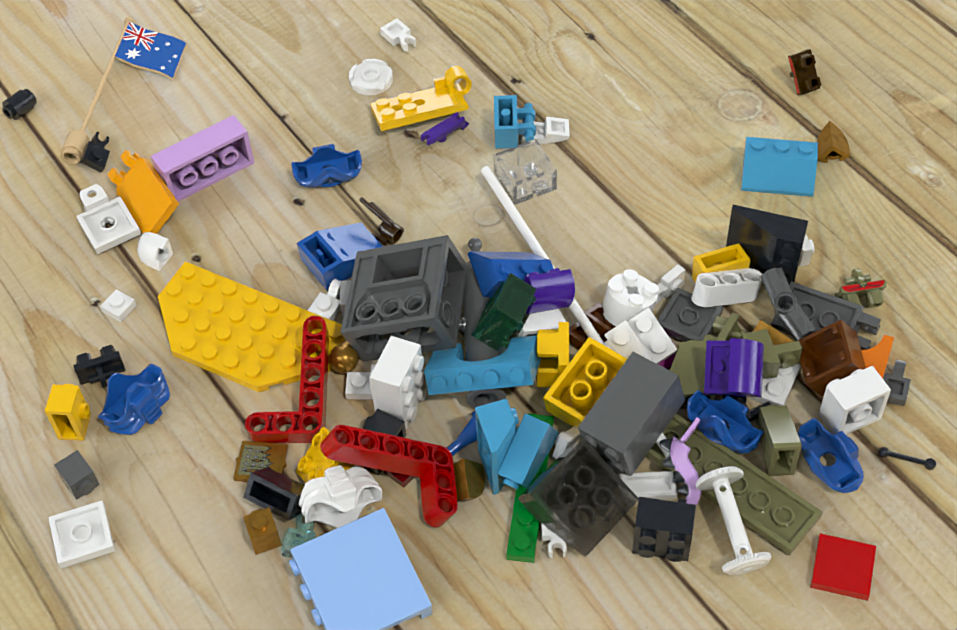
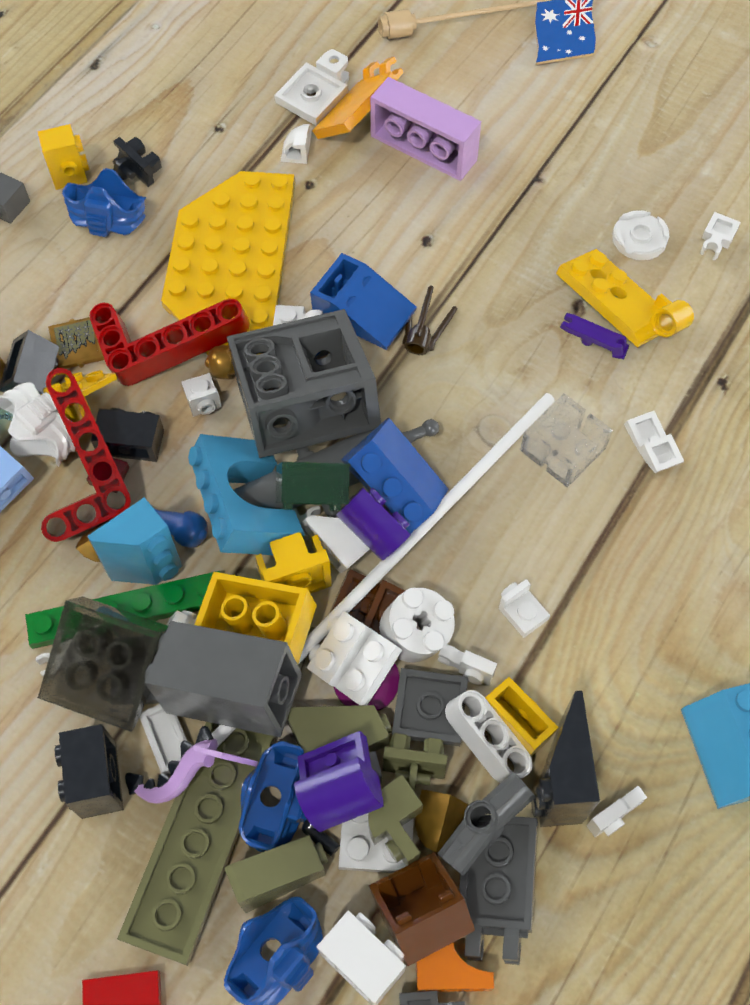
camera: 65 degrees right, 10 degrees up
(95, 154) = (396, 43): black plate -> none
(118, 305) = (219, 146): white plate -> none
(338, 165) = (462, 230): blue piece -> none
(399, 379) = (181, 412): white brick -> none
(506, 121) = (637, 392): dark azure brick -> none
(527, 452) = (148, 584): dark azure slope -> none
(638, 244) = (522, 608): none -> white bracket
(723, 478) = (74, 883): white hose -> none
(870, 290) = (556, 906): olive hips -> none

